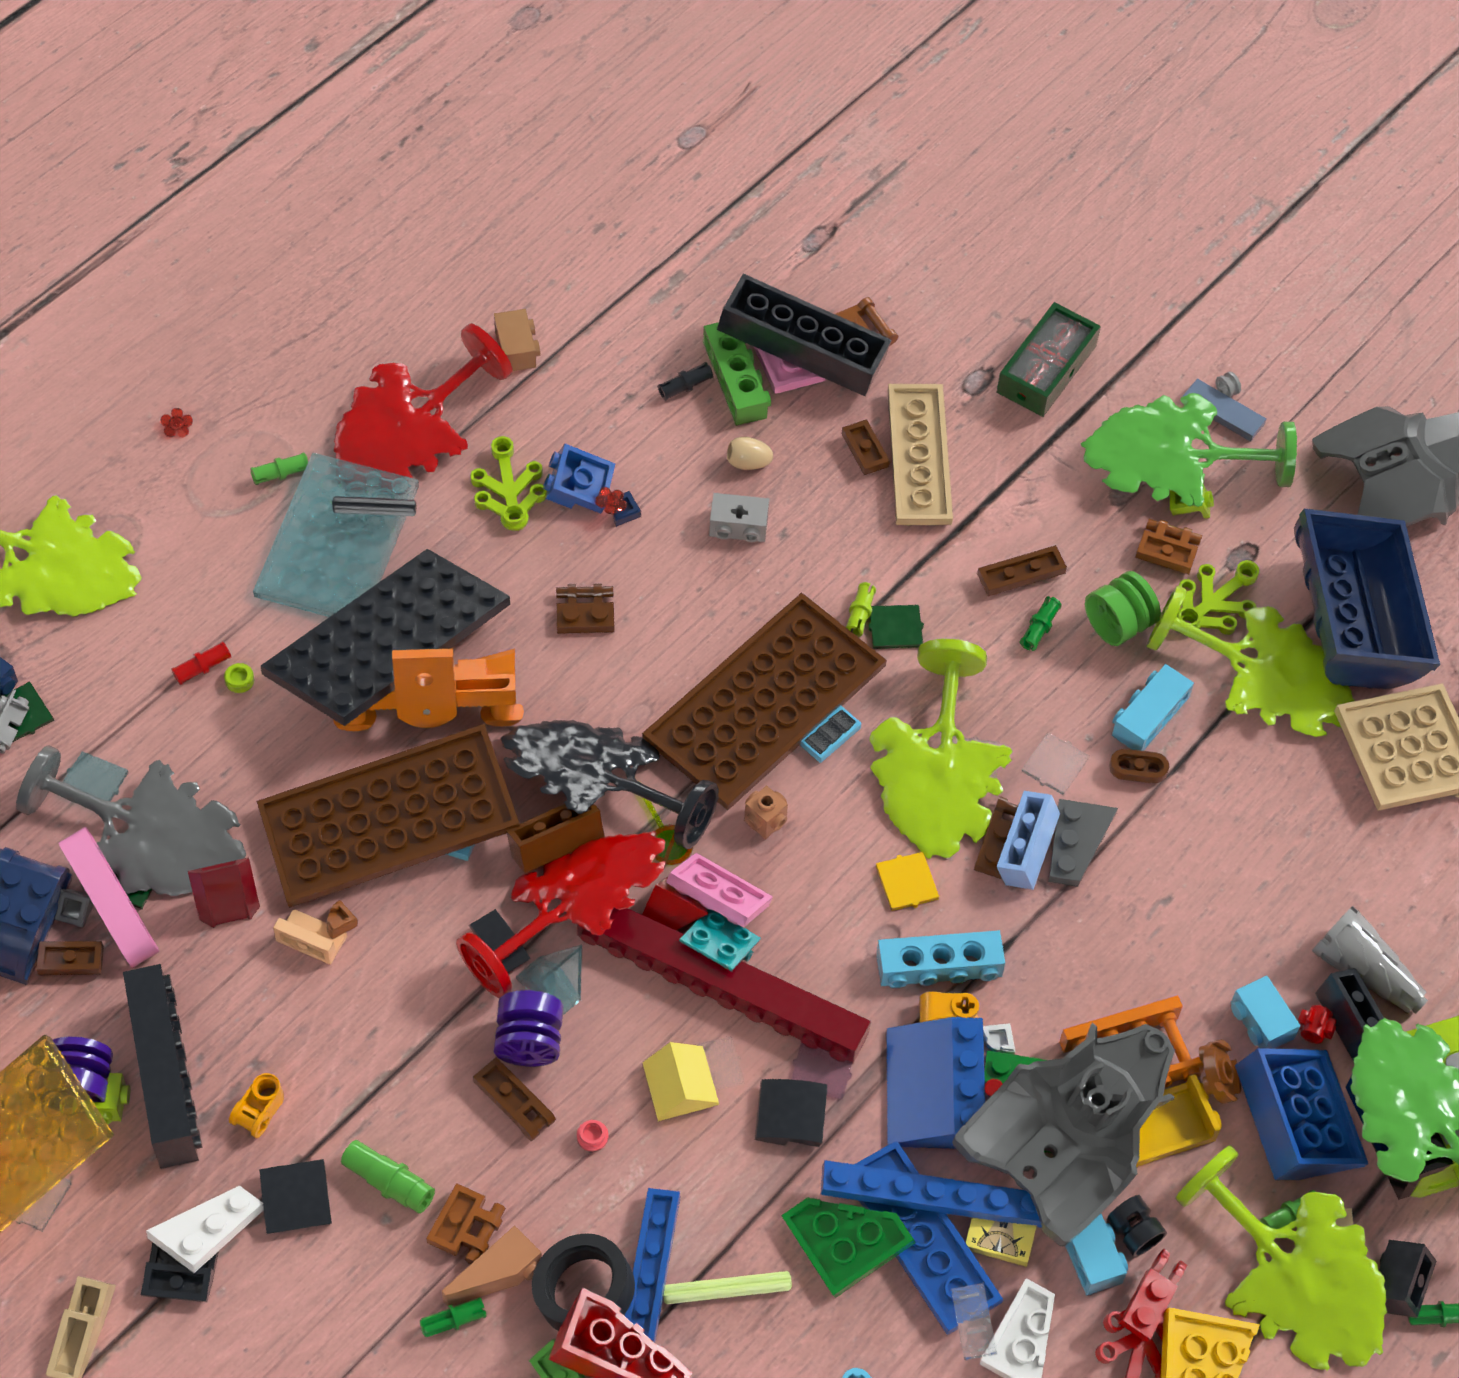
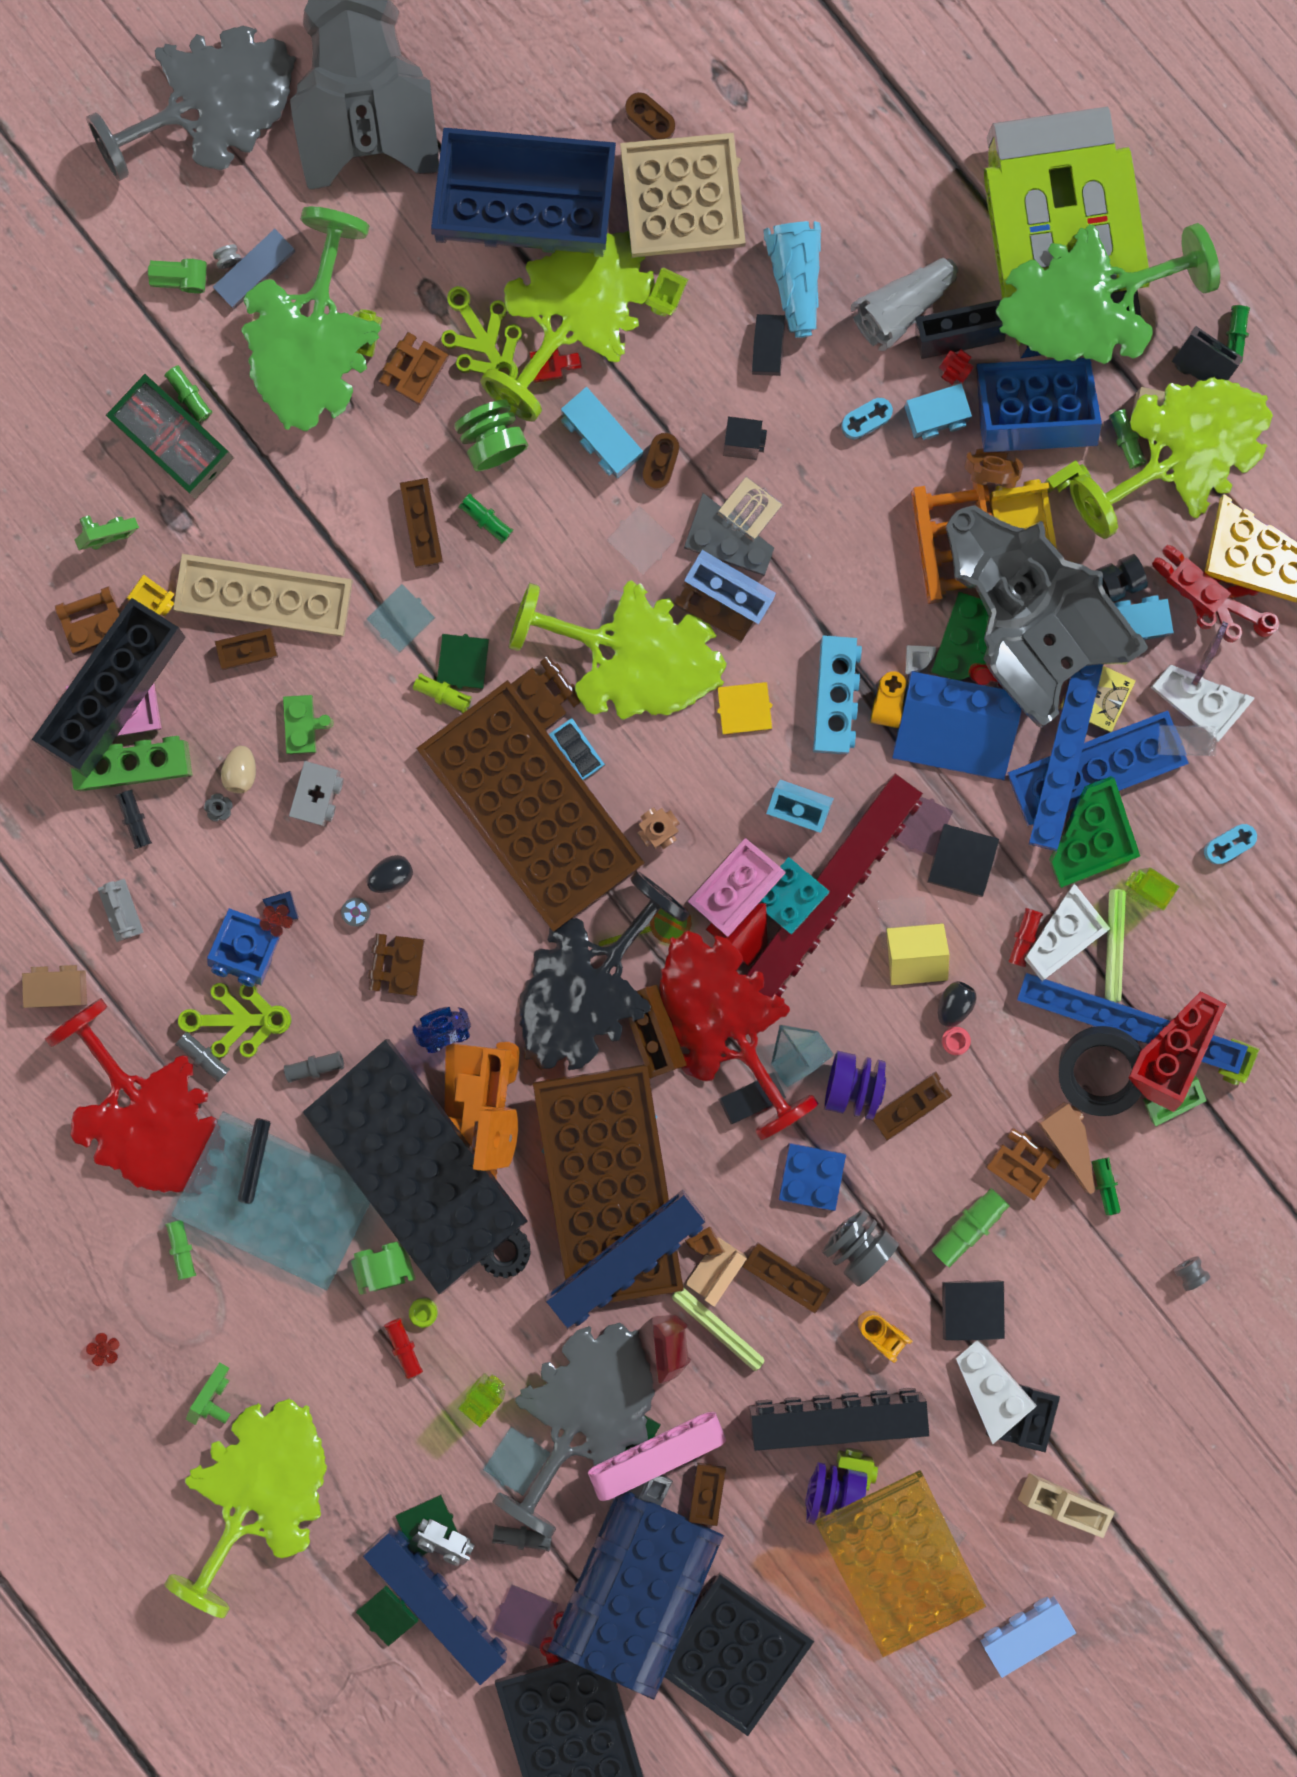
camera: 80 degrees left, 30 degrees up
(14, 778) = (520, 1538): none -> dark grey pin
(138, 499) = (202, 1405): none -> bright green plate
(155, 729) = (482, 1399): none -> clear neon green brick
(248, 946) = (718, 1329): none -> yellowish green axle
(278, 624) = (382, 1268): none -> bright green brick
(304, 723) = (516, 1265): none -> black tyre
(311, 1001) = (786, 1277): none -> reddish brown plate
(315, 834) = (625, 1259): none -> dark blue brick
(352, 1059) = (860, 1247): none -> dark grey wheel
(423, 1014) = (812, 1176): none -> blue plate
(468, 462) = (202, 1056): none -> dark grey pin
(473, 552) = (314, 1067): none -> dark grey pin
(530, 647) = (442, 1028): none -> clear blue plate
(599, 382) = (120, 910): none -> light grey hinge
(630, 569) = (356, 912): none -> dark grey tile
(633, 1125) = (956, 1004): none -> black animal
(672, 587) = (390, 874): none -> black animal
(709, 451) = (222, 814): none -> dark grey plate
(718, 1188) = (1025, 937): none -> red pin
(734, 1233) = (1066, 934): none -> white wing
(797, 1303) = (1150, 889): none -> clear neon green brick
(803, 502) = (301, 724): none -> bright green plate
(816, 937) = (800, 806): none -> medium azure brick
(876, 693) = (540, 699): none -> reddish brown plate
(895, 366) = (152, 596): none -> yellow bracket
(925, 569) = (400, 618): none -> clear light blue piece
(946, 321) = (96, 536): none -> bright green plate
(1076, 1323) = (1209, 653): none -> clear purple piece
(1092, 372) = (188, 393): none -> bright green pin
(1113, 853) = (749, 509): none -> piece
(1182, 827) = (744, 438): none -> black brick
(1200, 355) = (185, 275): none -> bright green piece
(1208, 660) = (555, 364): none -> red plate
(1237, 951) = (864, 412): none -> medium azure beam
(1240, 1165) = (1062, 479): none -> lime bracket
(1280, 844) = (768, 344): none -> black slope
(1308, 747) = (666, 292): none -> lime bracket
(1369, 855) = (796, 268): none -> medium azure cone
(1381, 363) = (231, 87): none -> dark grey plant

